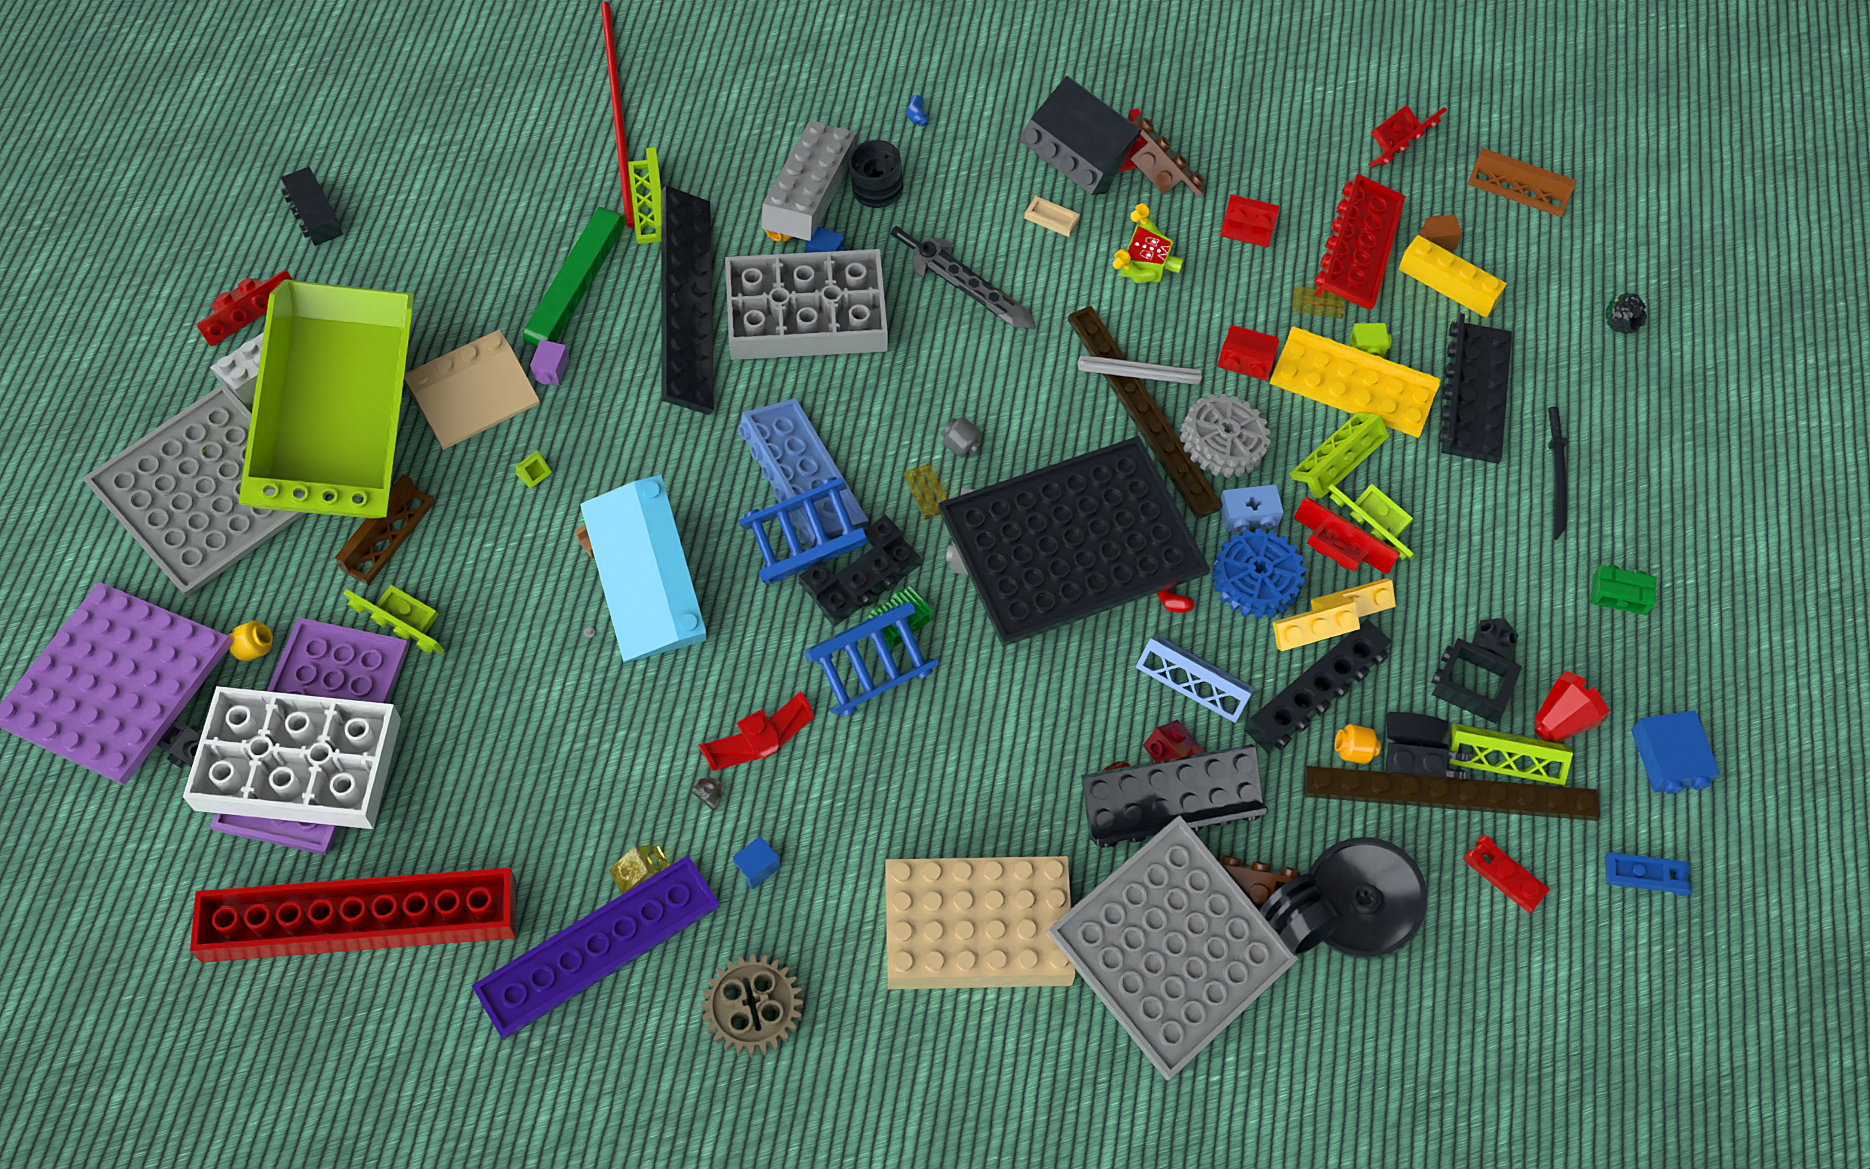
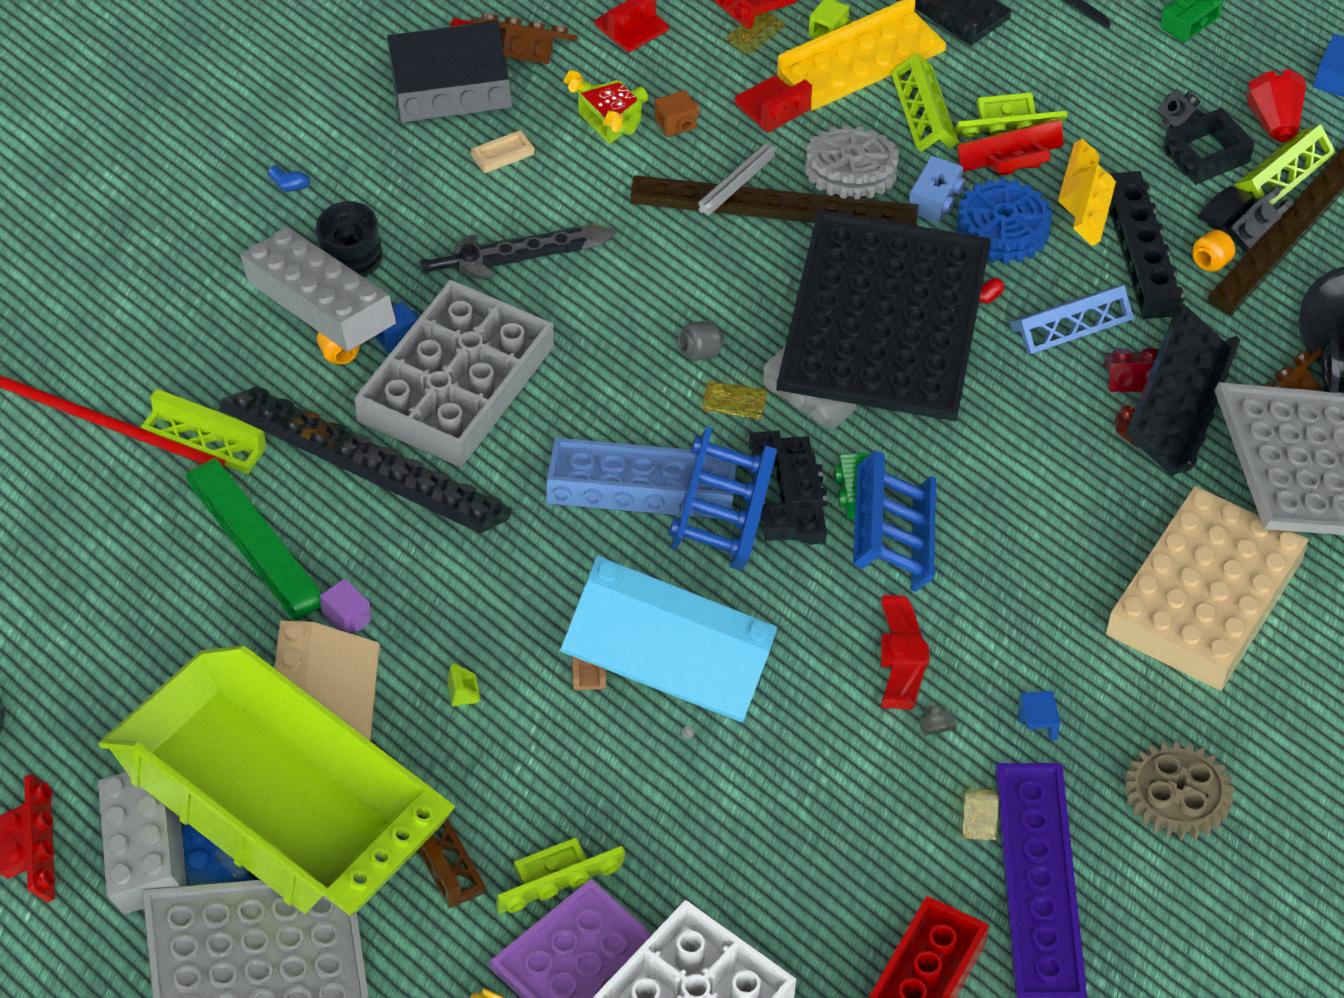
camera: 55 degrees left, 10 degrees down
(1179, 297) = (676, 113): none -> dark orange brick

